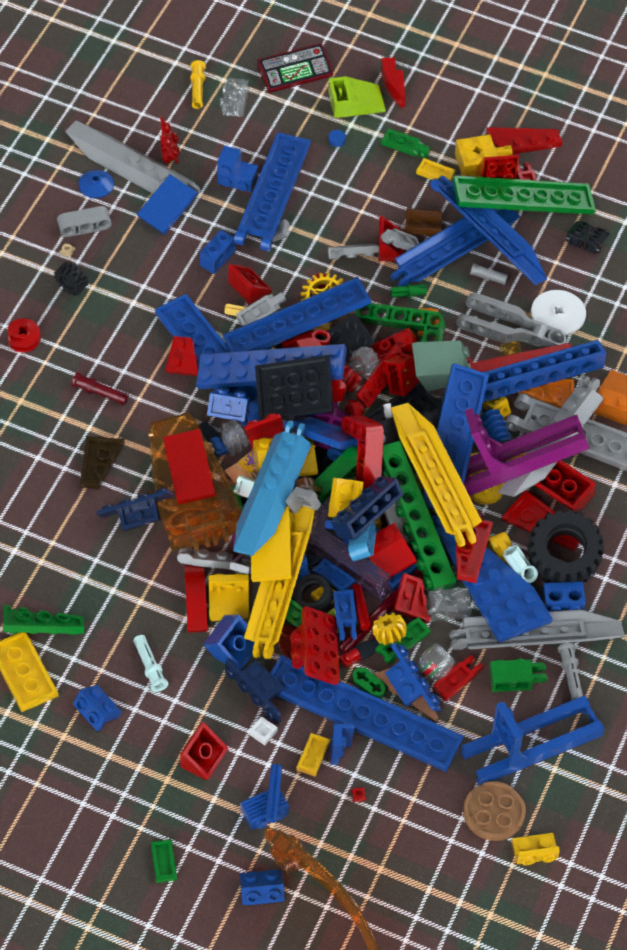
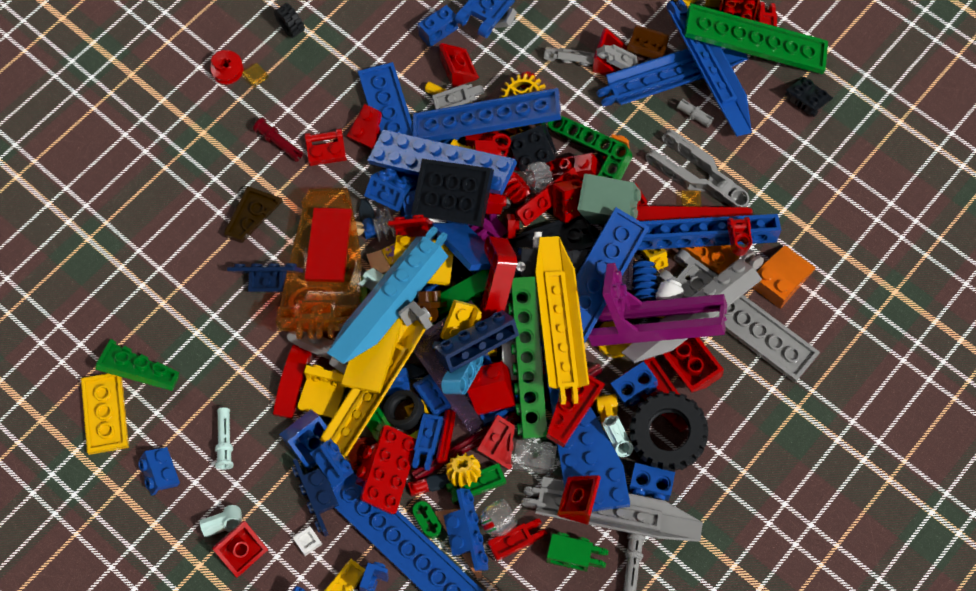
camera: 20 degrees right, 10 degrees up
(53, 336) = (255, 75): none -> clear yellow tile
(149, 390) = (326, 152): none -> red plate
(176, 733) = (221, 522): none -> light aqua piece
(265, 651) = (332, 462): none -> blue bracket
(408, 291) = (609, 111): green axle -> none
(507, 621) = (579, 498): none -> red slope
(515, 516) = (630, 380): none -> blue brick
(522, 427) = (669, 290): none -> white head
(553, 301) = (753, 157): white piece -> none
(570, 361) = (739, 231): none -> red piece

